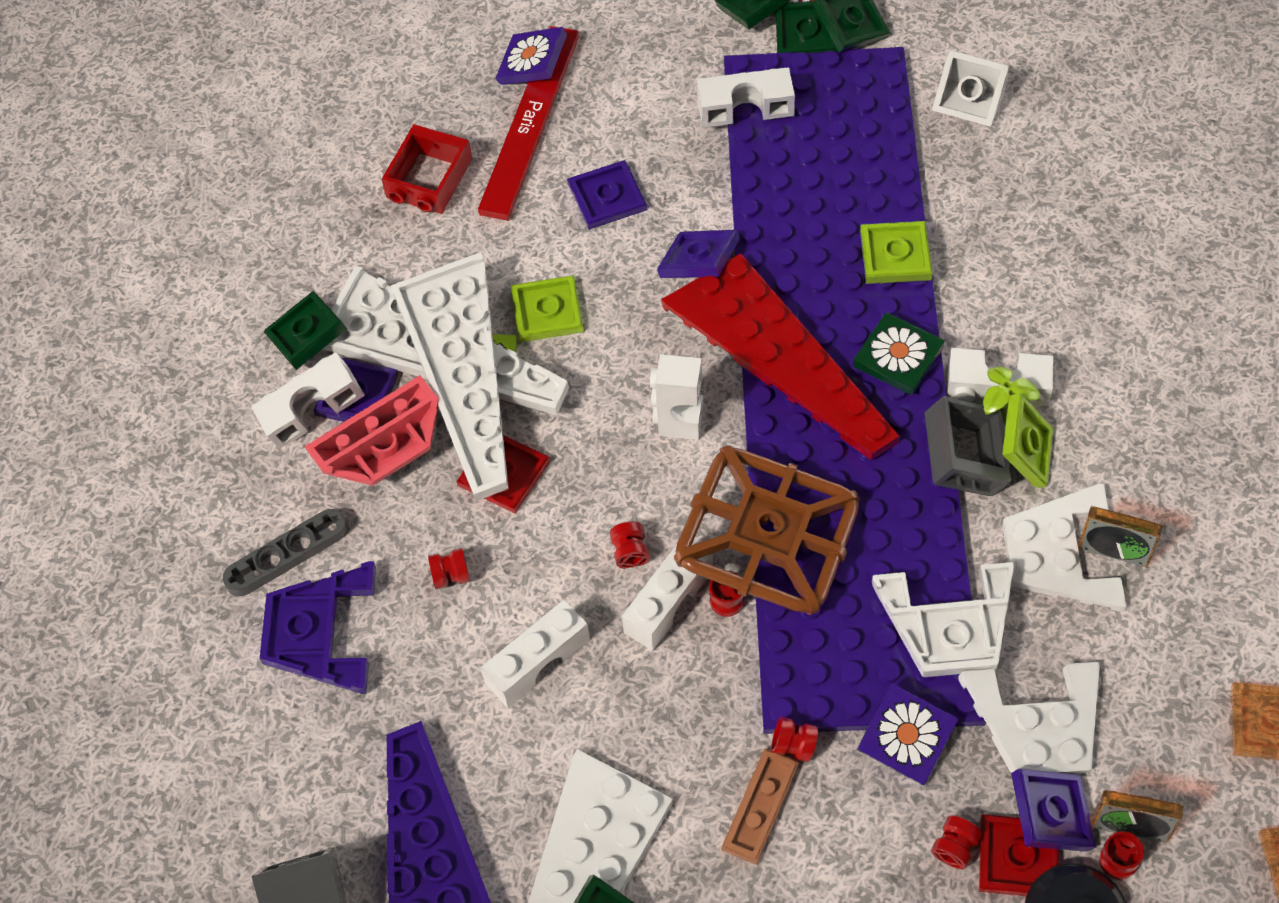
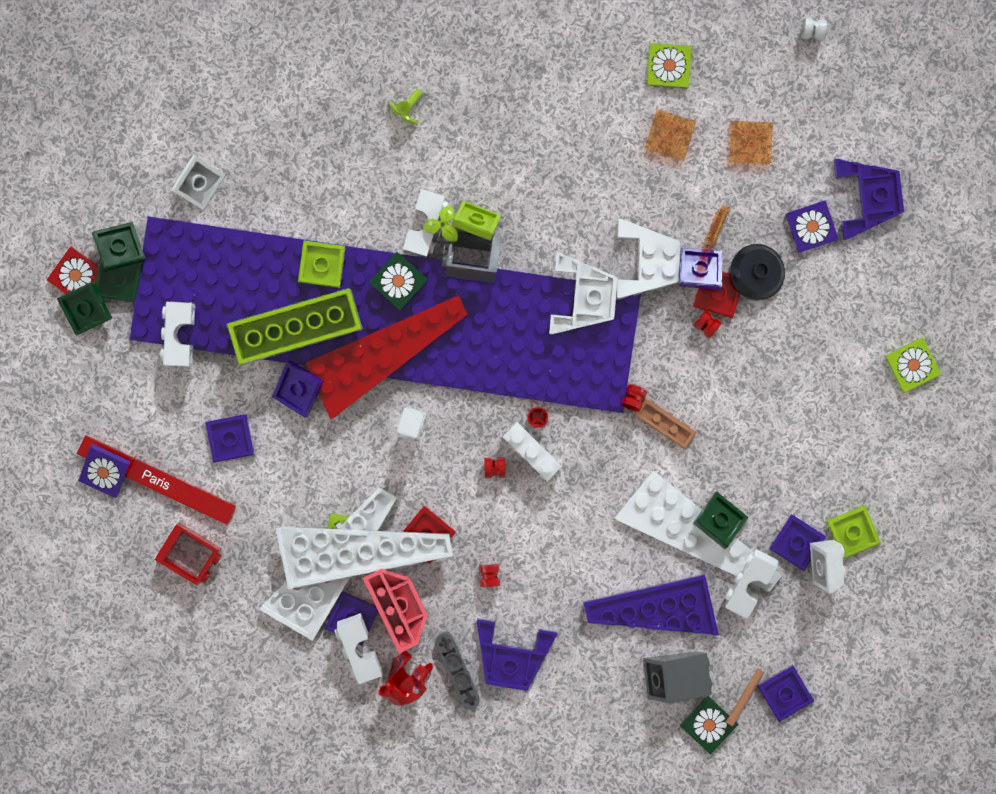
camera: 85 degrees left, 30 degrees up
(253, 474) = (404, 688): none -> red piece
(305, 330) = (303, 646): dark green tile -> none
(515, 667) = (555, 532): white arch -> none
(546, 308) = (312, 490): lime tile -> none
(774, 547) = (511, 400): dark orange plate -> none
(793, 227) = (295, 326): none -> lime brick
(907, 734) = (643, 335): tile -> none
(1047, 554) = (541, 227): white wing -> none
(1120, 536) = (550, 186): tile -> none
(1125, 849) = (731, 239): red wheel -> none
(1166, 319) = (403, 107): none -> lime plant

